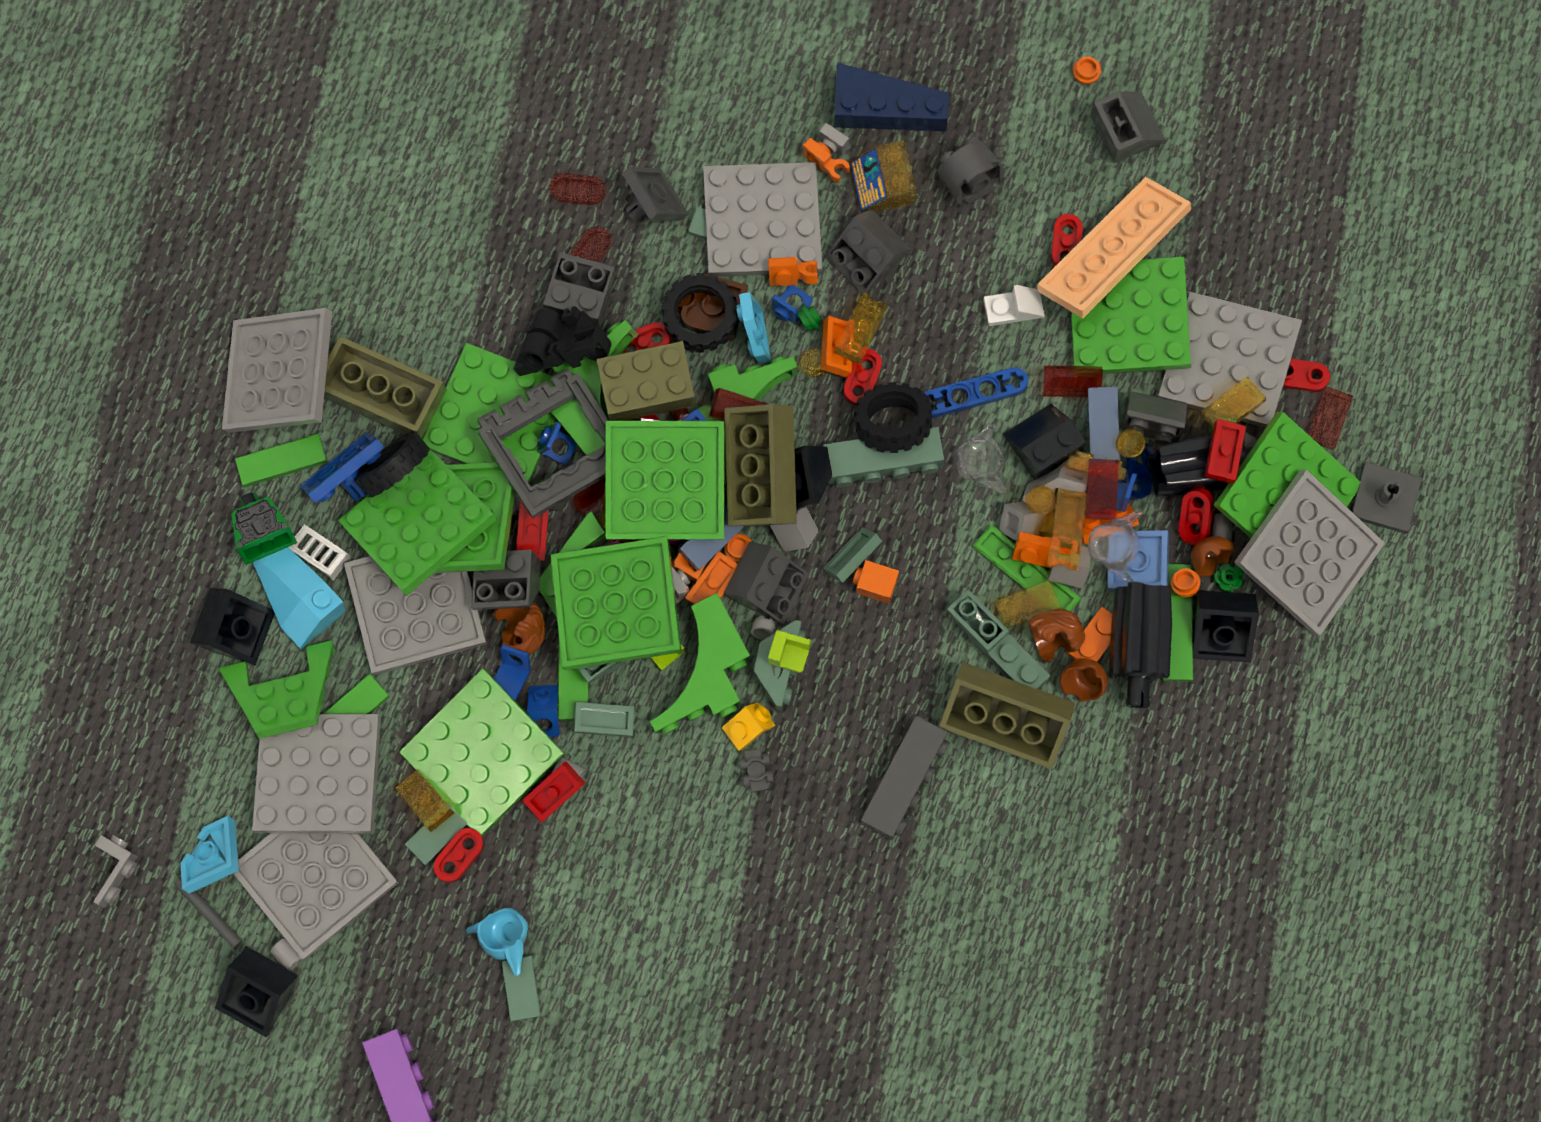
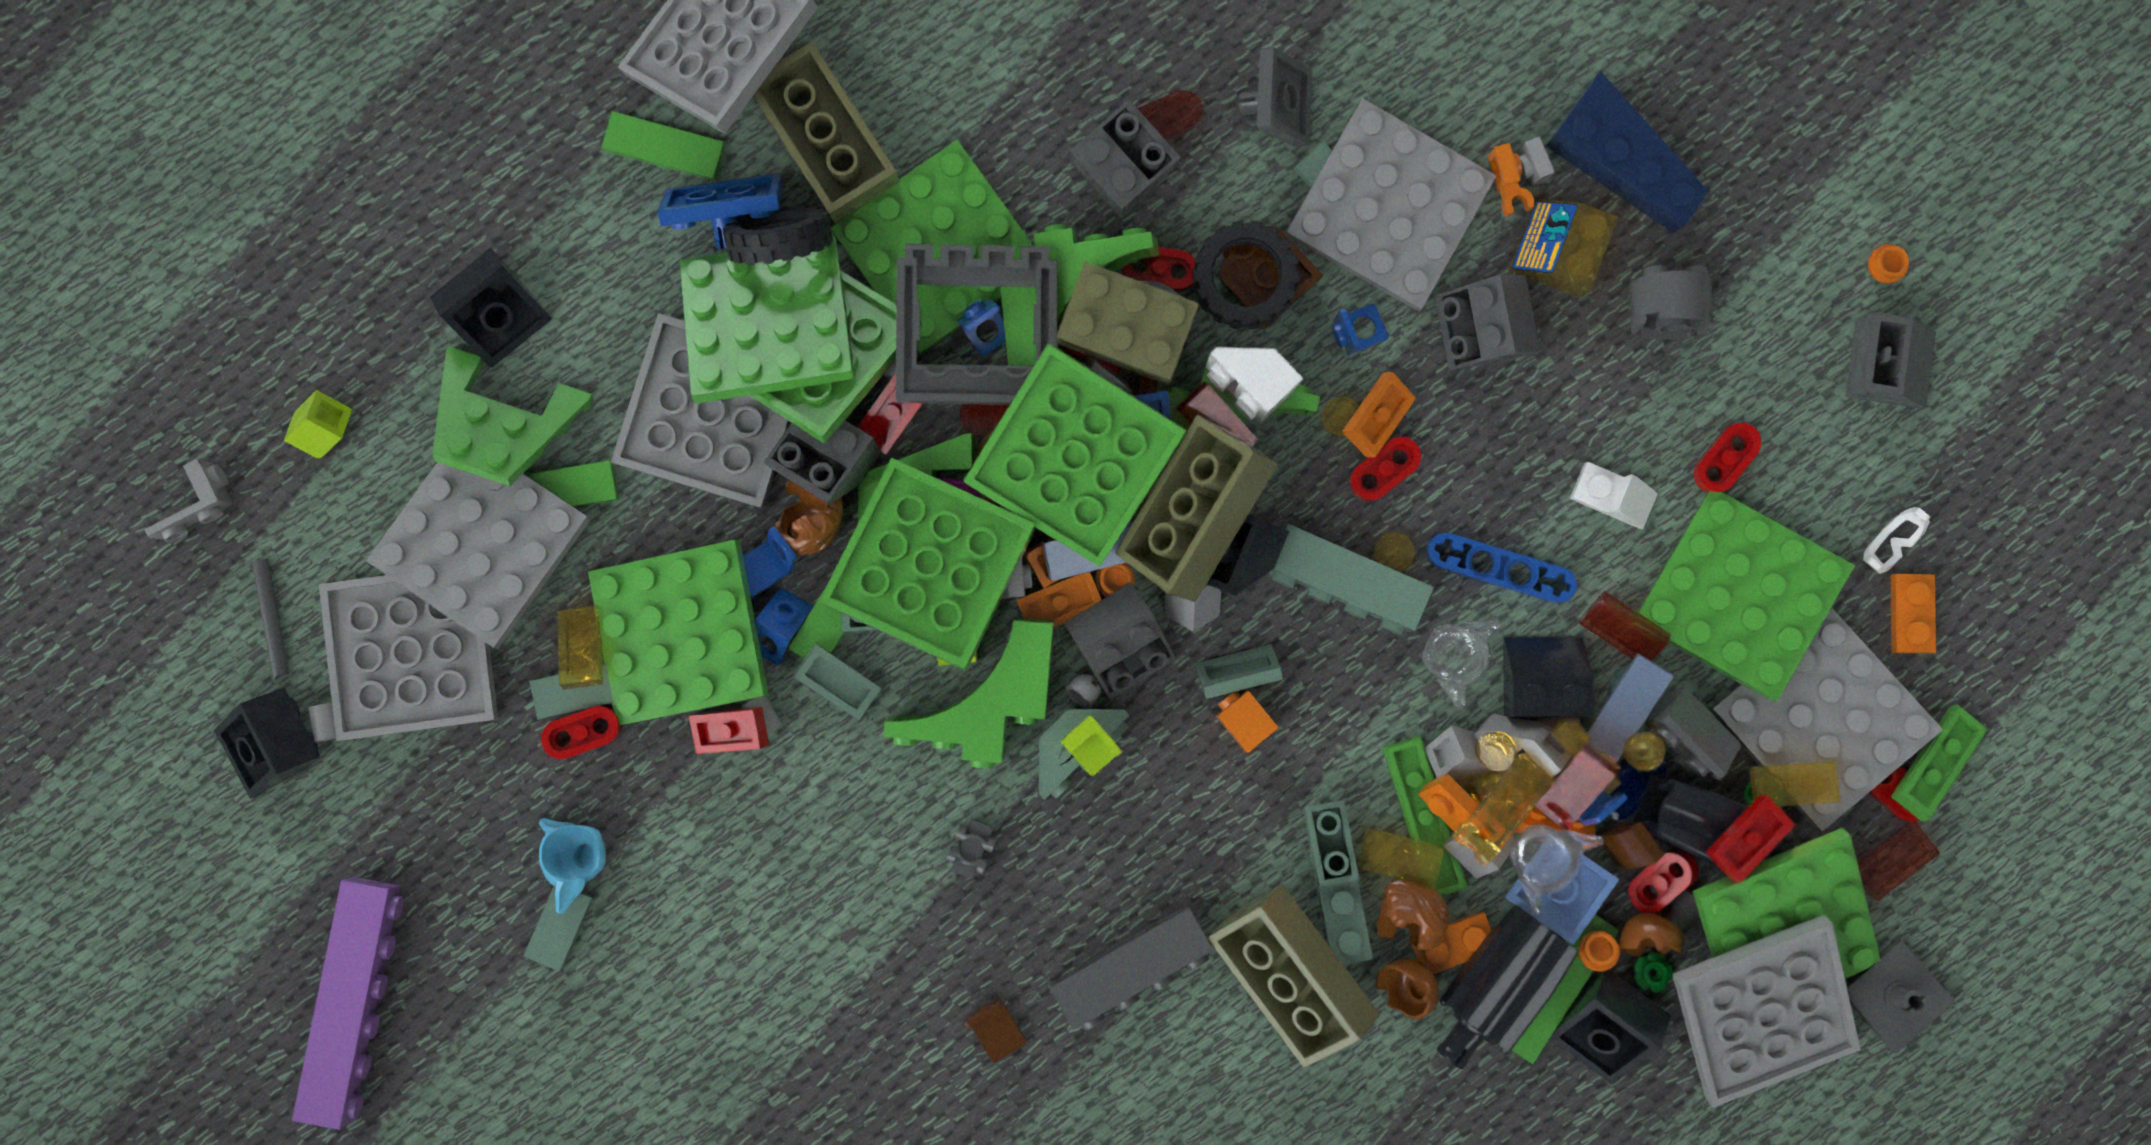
camera: 30 degrees right, 10 degrees up
(164, 768) = (318, 424): none -> lime panel
(212, 858) = (307, 563): medium azure plate -> none
(260, 528) = (586, 213): torso -> none
(298, 596) = (583, 313): medium azure wedge -> none
(337, 563) = (650, 309): white slope -> none
(560, 338) = (1063, 207): black plate -> none
(577, 189) = (1200, 34): clear red tile -> none
(745, 367) = (1254, 377): none -> white slope
(748, 725) = (996, 792): yellow bracket -> none
(755, 327) = (1297, 330): medium azure plate -> none
(787, 271) = (1380, 287): orange plate -> none
(809, 317) = (1369, 359): green plate -> none
(844, 873) = (995, 1029): none -> reddish brown bracket
(860, 329) = (1419, 412): clear yellow plate -> none
(896, 438) = (1408, 517): black tyre -> none
(899, 419) = (1394, 551): none -> clear yellow plate
(1114, 247) = (1780, 503): light nougat plate -> none
(1160, 505) = (1630, 845): none -> reddish brown slope
(1201, 205) = (1915, 516): none -> white helmet
(1241, 265) = (1913, 613): none -> orange plate
(1315, 342) = (1939, 763): none -> bright green tile

